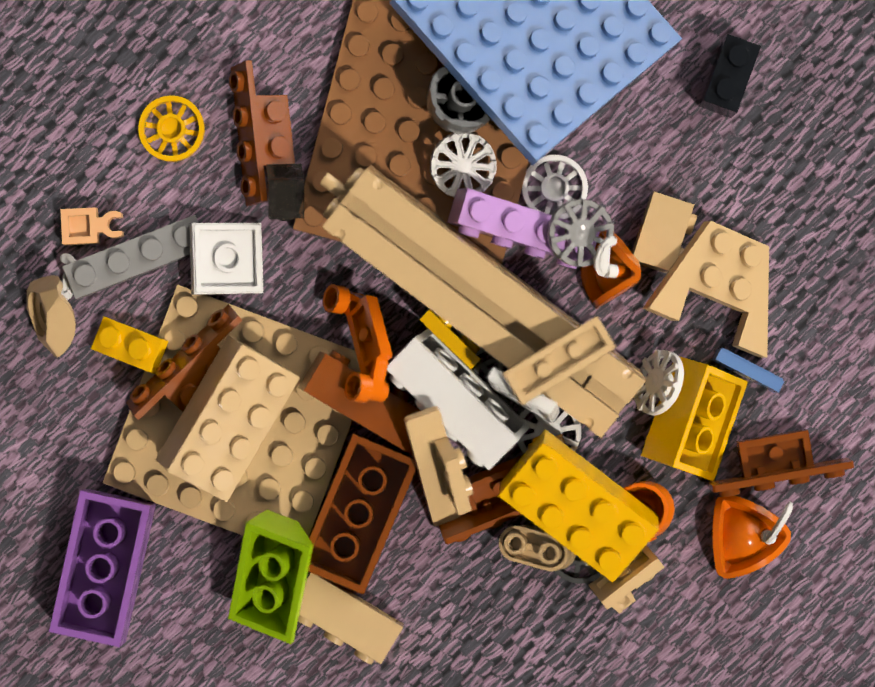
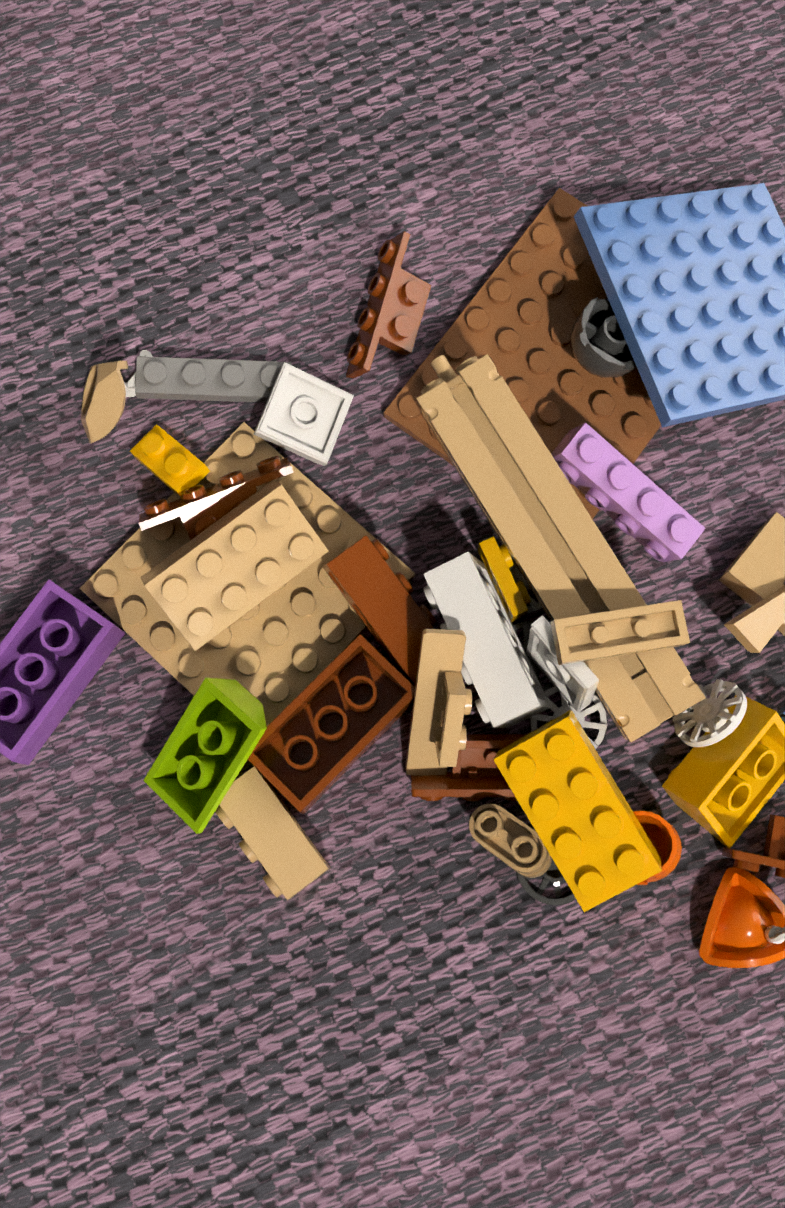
camera: 25 degrees right, 10 degrees down
(83, 226) = (178, 330): light nougat plate -> none
(171, 128) = (303, 275): yellow wheel -> none
(285, 191) = (390, 370): clear smoke brick -> none
(368, 339) = (416, 547): orange plate -> none
(462, 163) = (584, 407): white wheel -> none
(554, 185) = (670, 473): white wheel -> none
(578, 232) = (687, 517): light grey wheel -> none
(613, 271) = (701, 574): orange hat -> none
(619, 594) = (580, 927): tan hinge -> none

